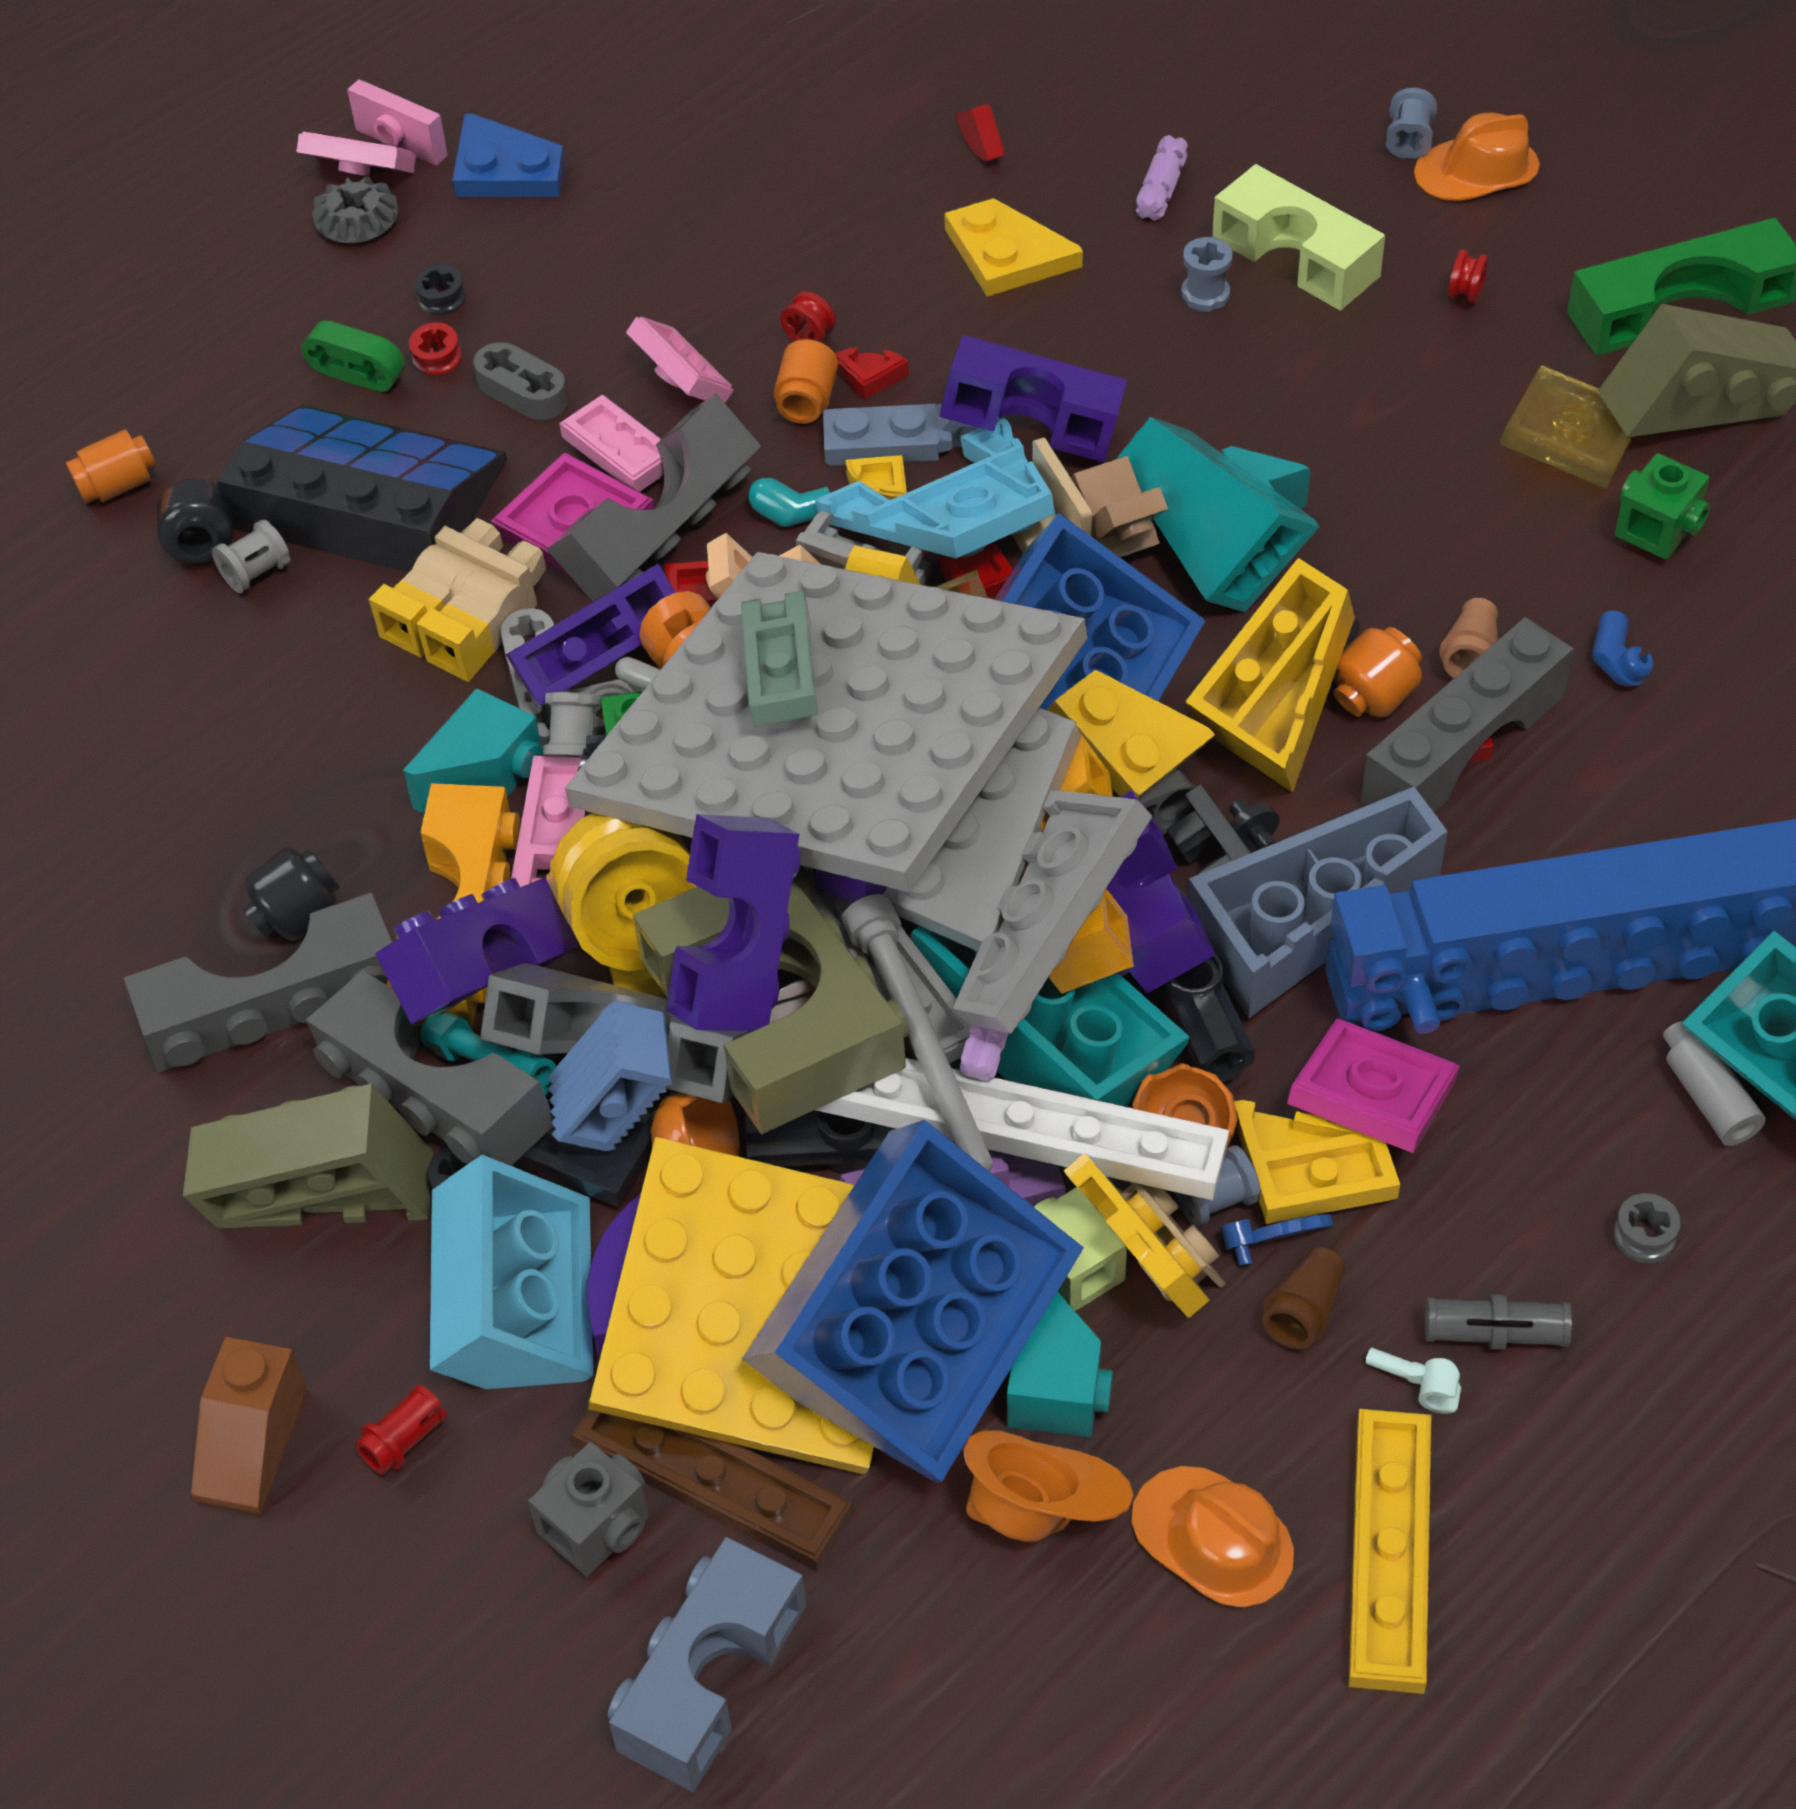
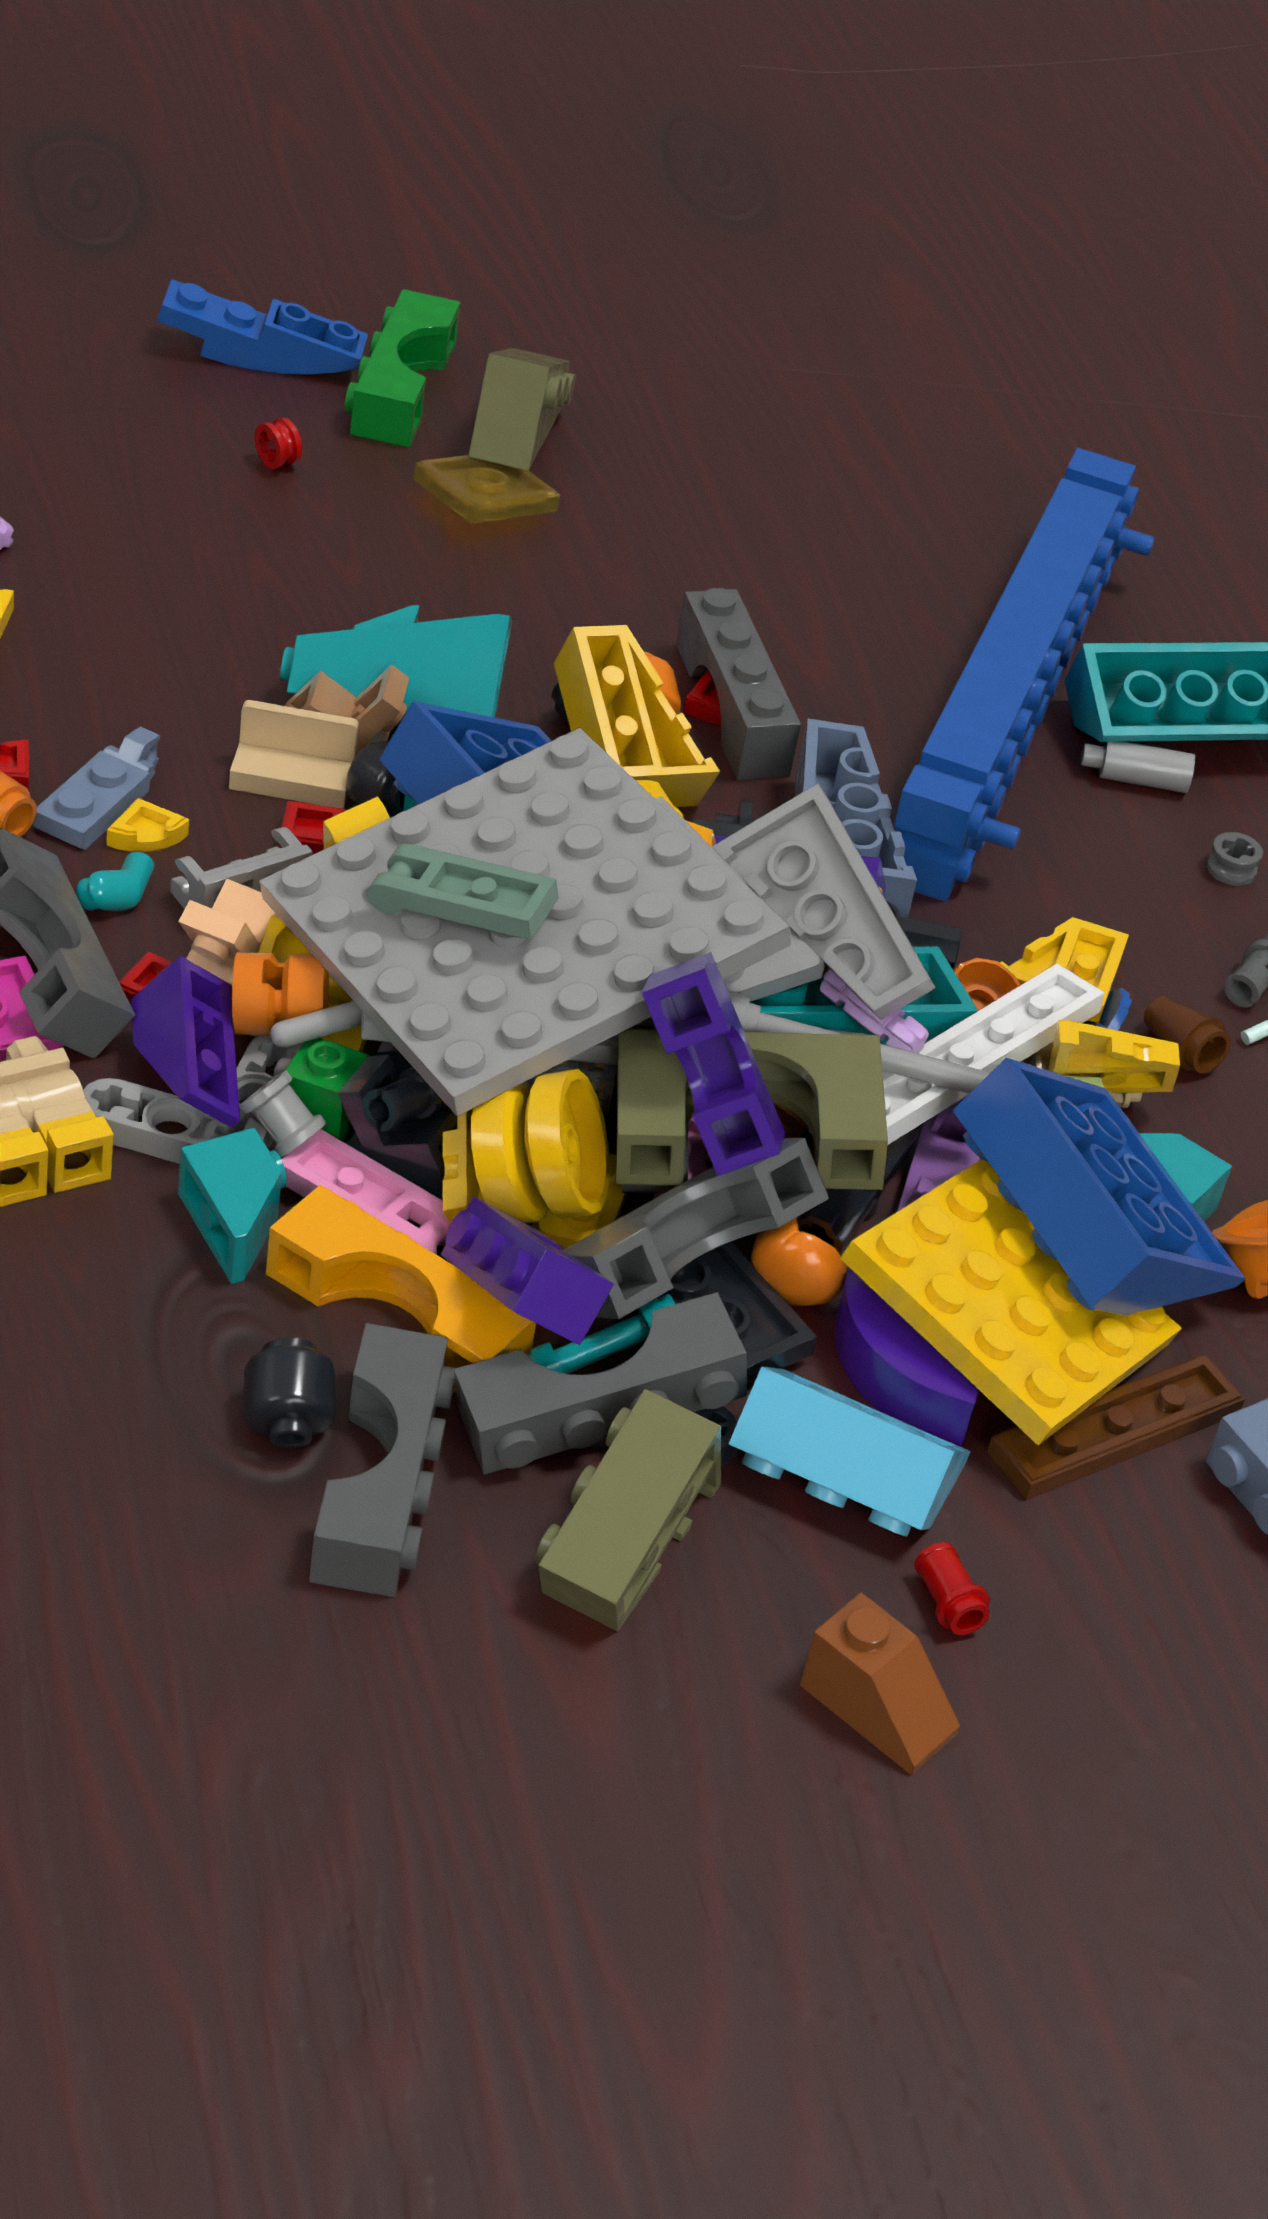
camera: 70 degrees left, 10 degrees down
(590, 1507) = (1128, 1494): dark grey brick -> none
(610, 1076) = (744, 1245): medium blue brick -> none
(959, 511) = (259, 787): medium azure wing -> none
(1004, 381) = (148, 695): dark purple arch -> none
(1206, 279) = (125, 547): sand blue bush -> none
(1268, 213) = (175, 478): yellowish green arch -> none
(1374, 1085) = (1027, 901): dark pink tile -> none
(1411, 114) = (76, 376): sand blue bush -> none
(1469, 636) = (657, 637): nougat cone -> none
(1483, 158) = (148, 374): orange piece -> none
(1609, 185) = (281, 342): none -> blue slope
(1614, 657) = (696, 580): blue arm -> none
(1666, 495) = (618, 491): green brick -> none

